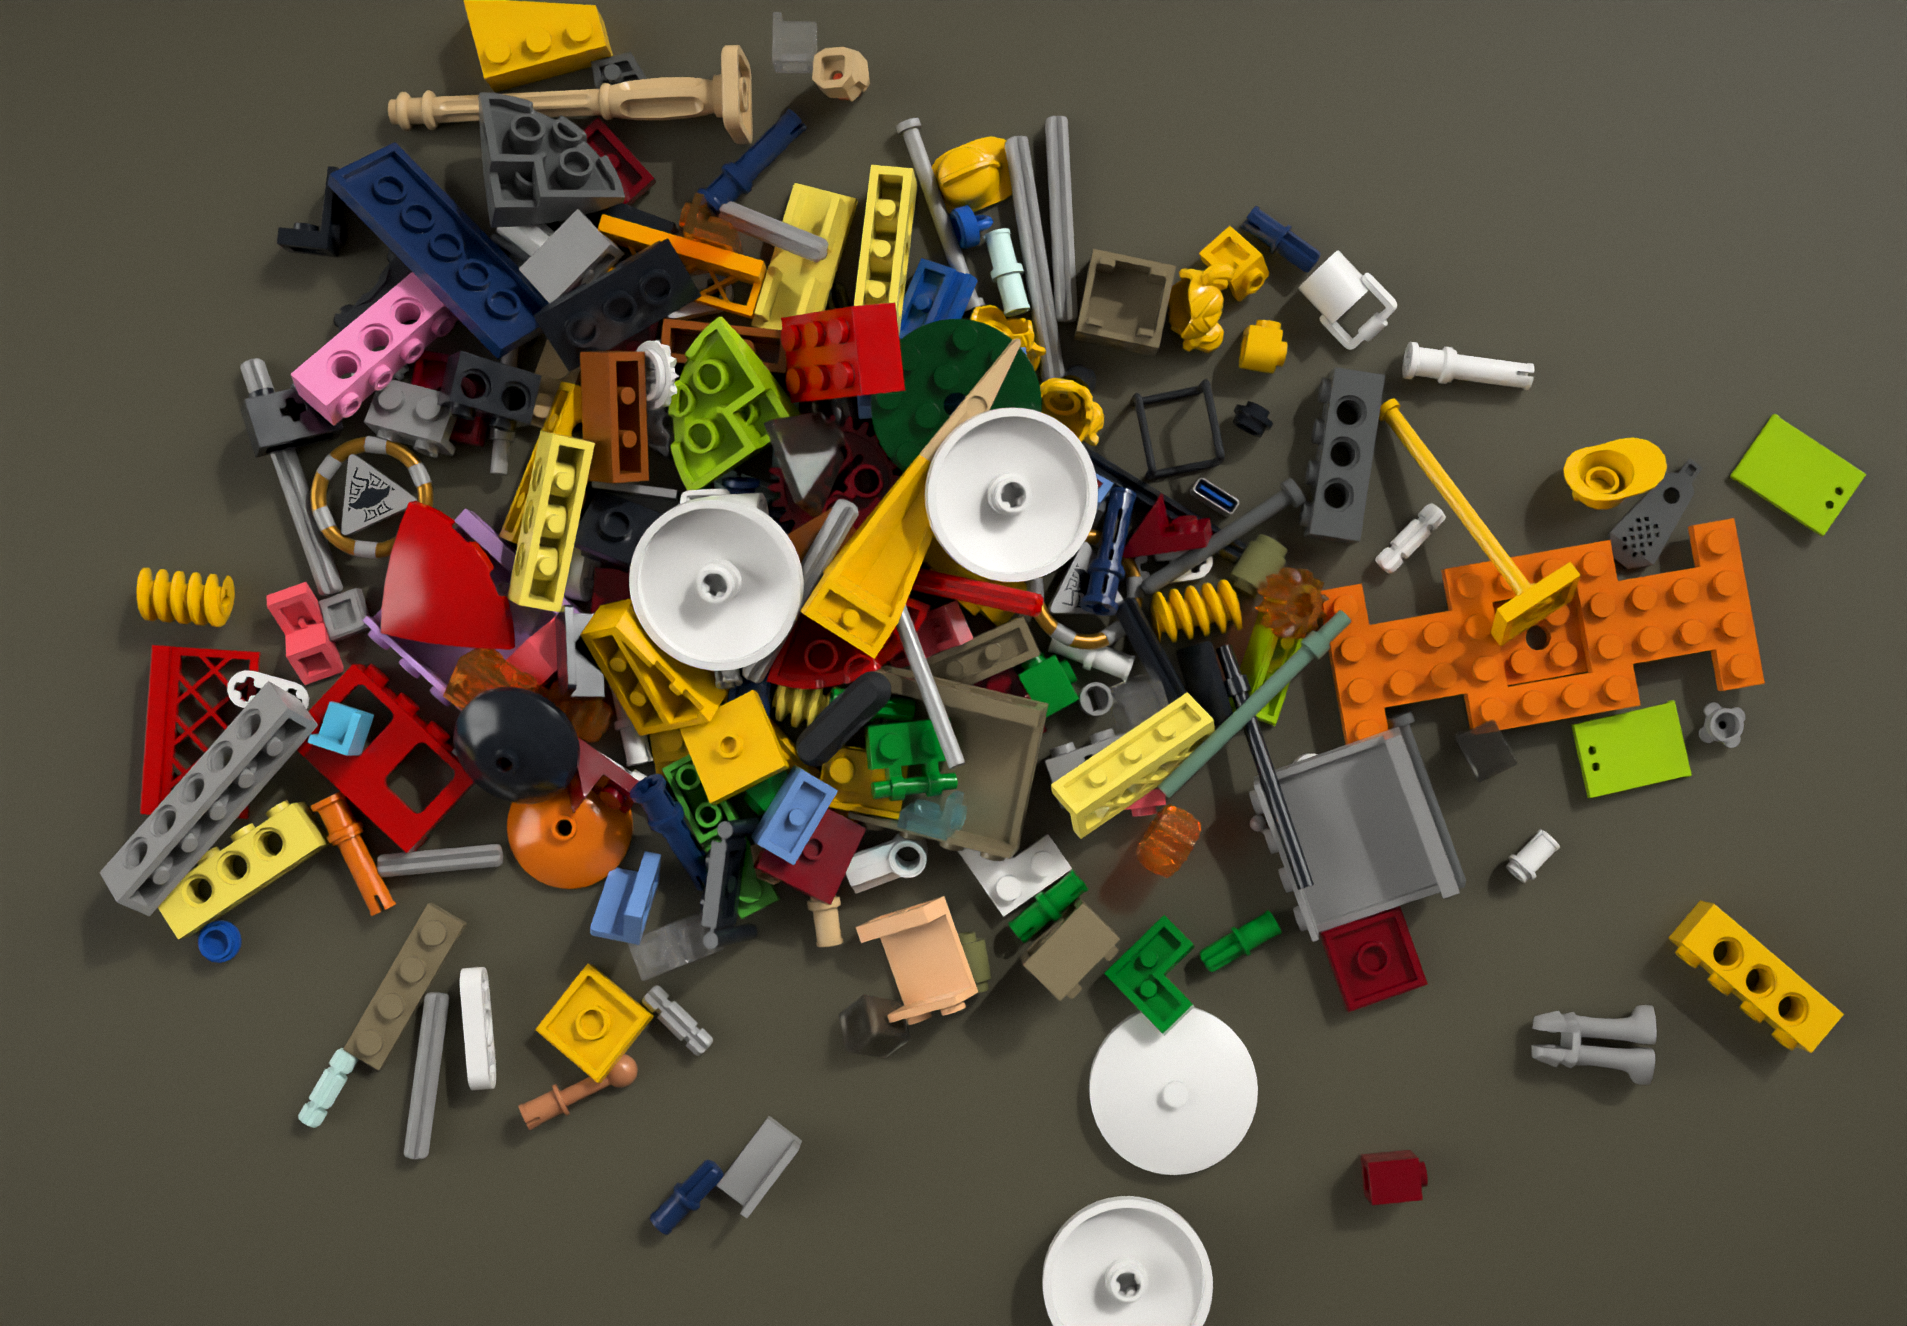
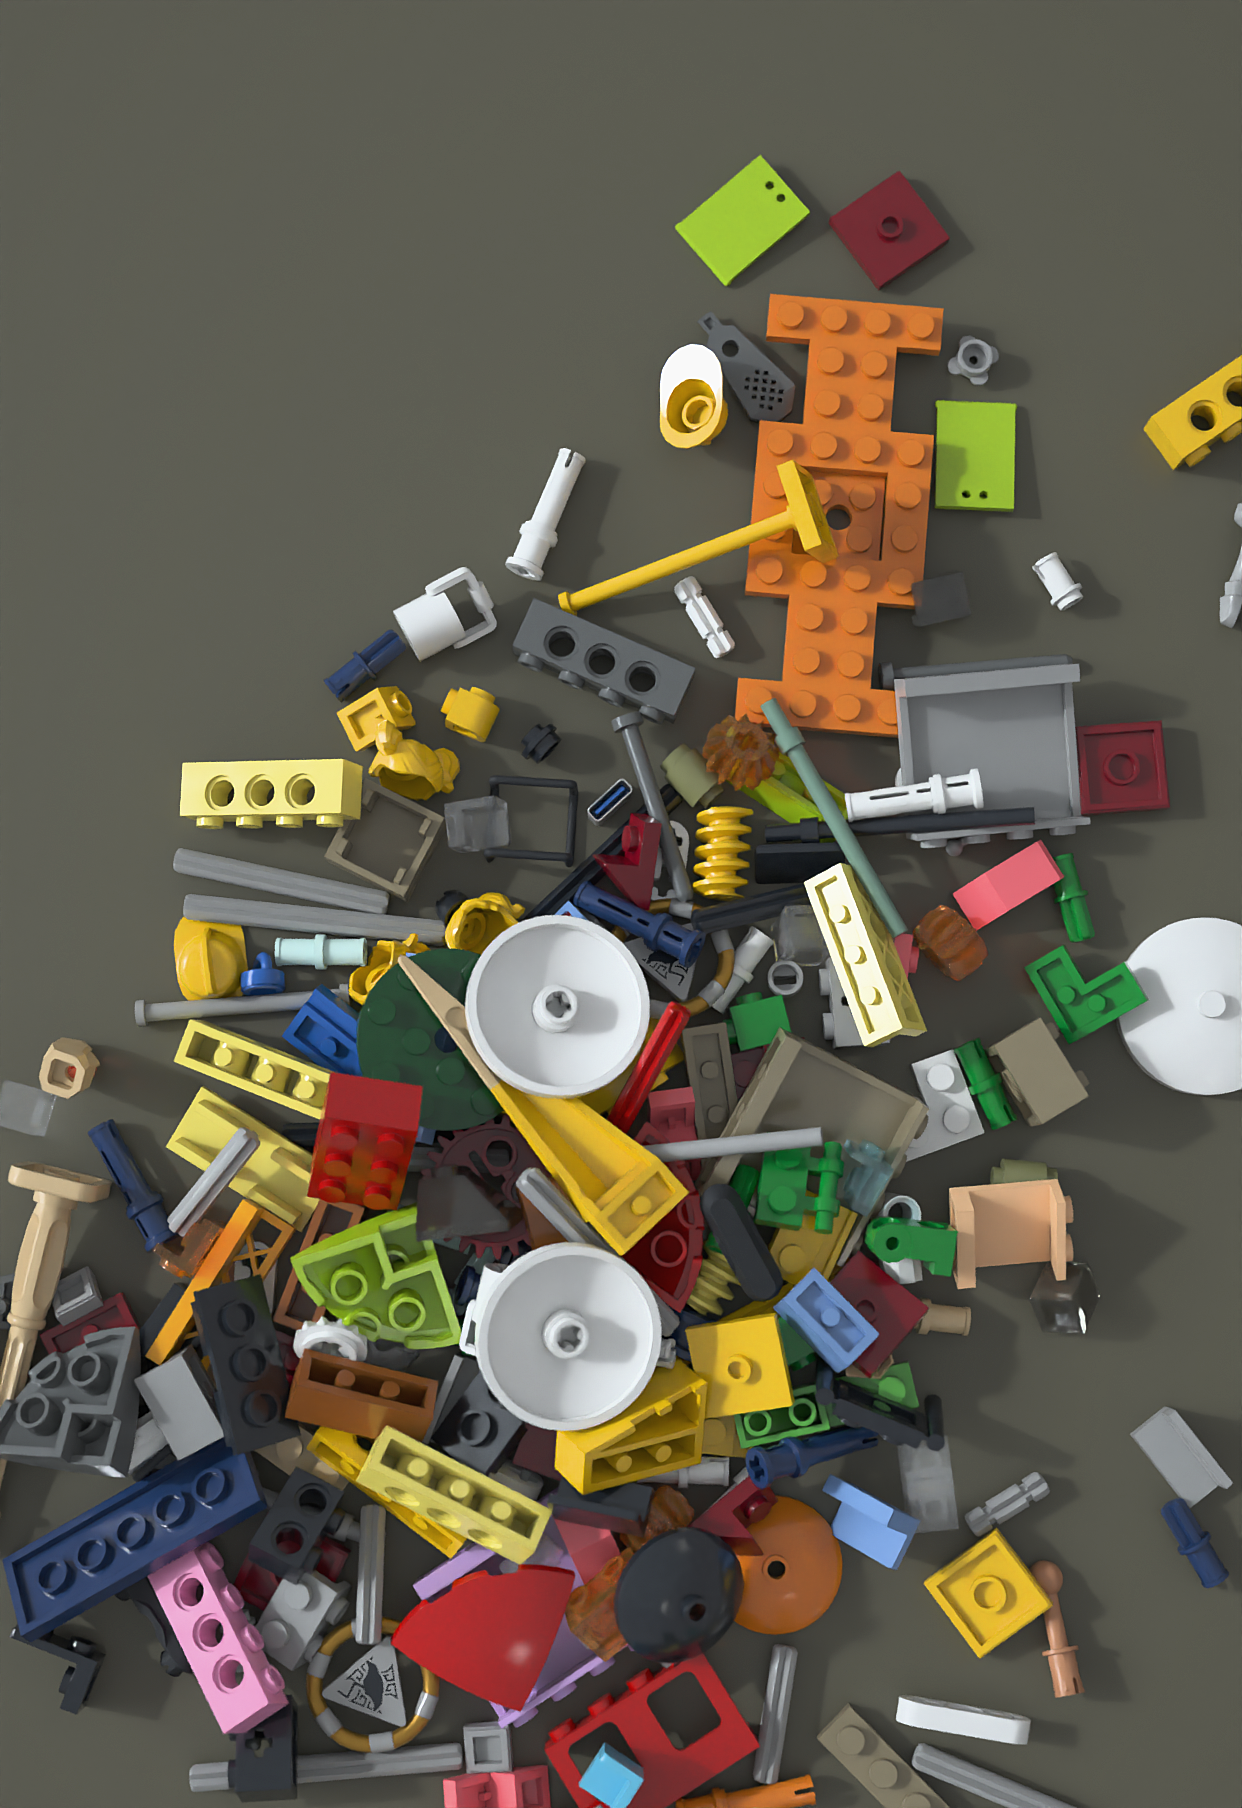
camera: 75 degrees left, 5 degrees down
(465, 468) = (370, 1574): none -> light grey axle
(641, 140) = (76, 1296): none -> light grey tile
(888, 875) = (923, 1240): none -> green leg
(1131, 127) = (208, 784): none -> light yellow brick
(1161, 381) = (477, 824): none -> clear panel
(1236, 881) = (1008, 885): none -> coral slope
(1301, 793) = (936, 795): none -> white pin
(1826, 614) = (889, 230): none -> dark red plate

